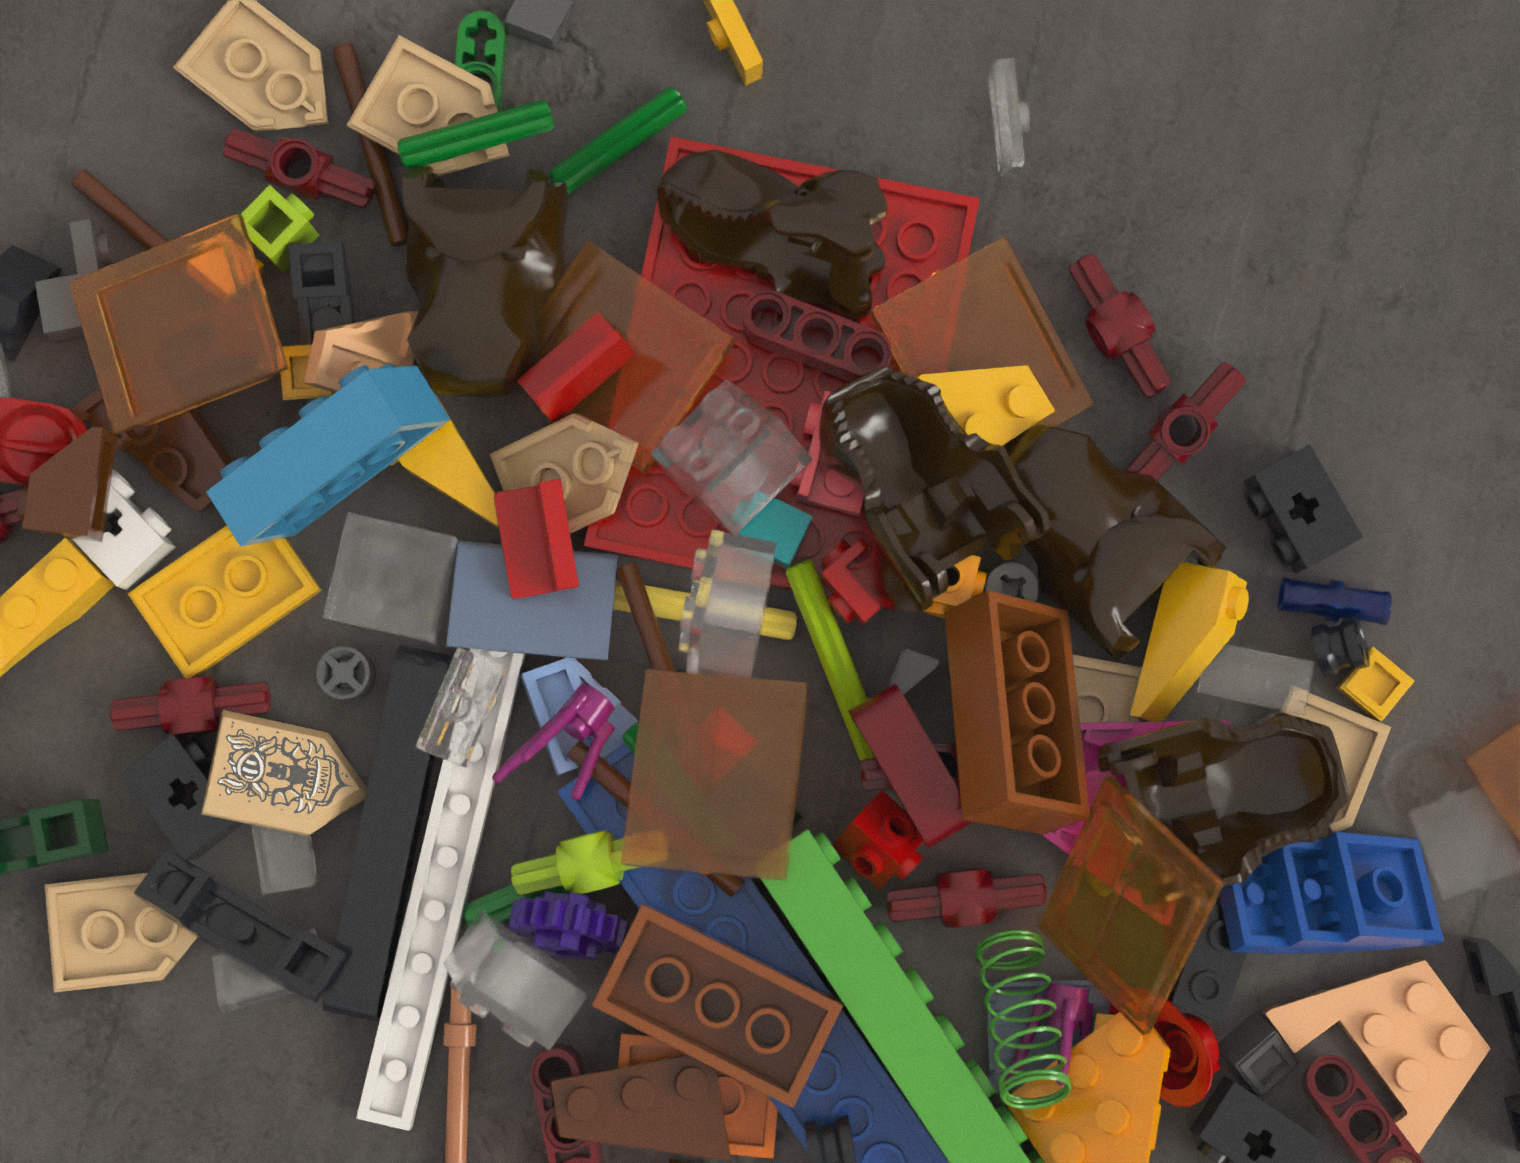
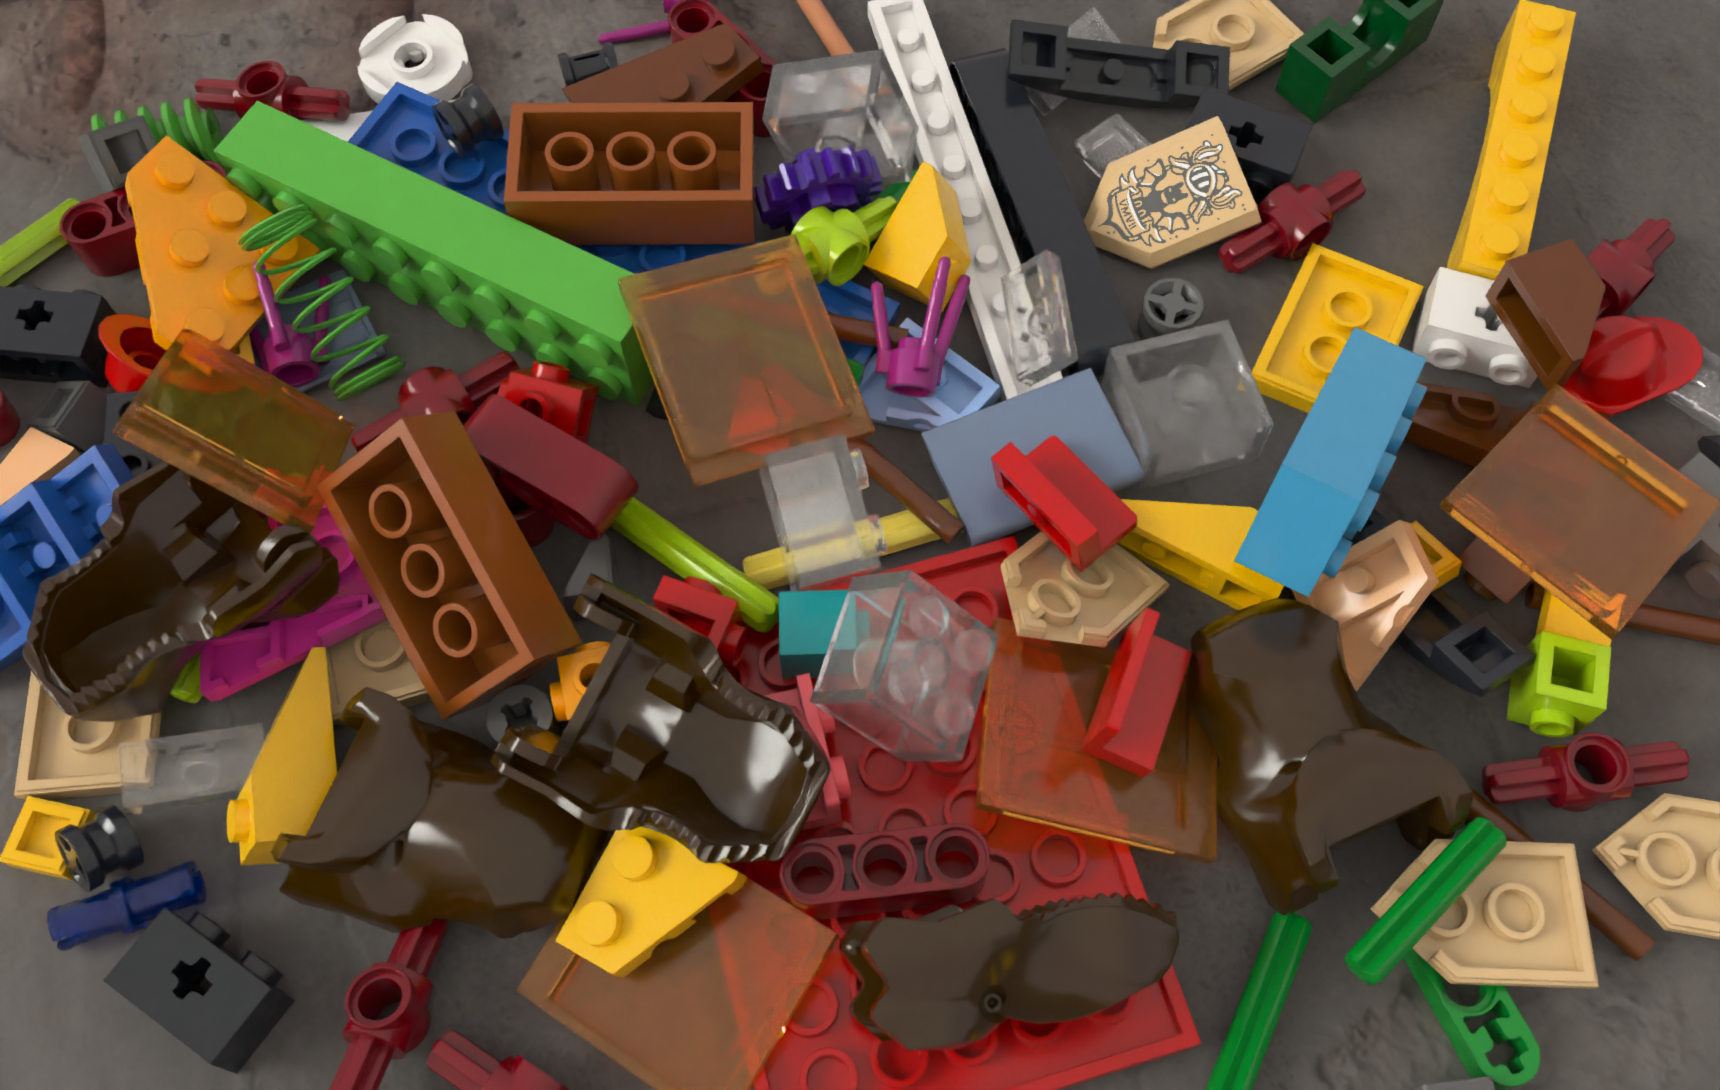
camera: 155 degrees right, 20 degrees down
(507, 831) = (920, 233): none -> yellow slope

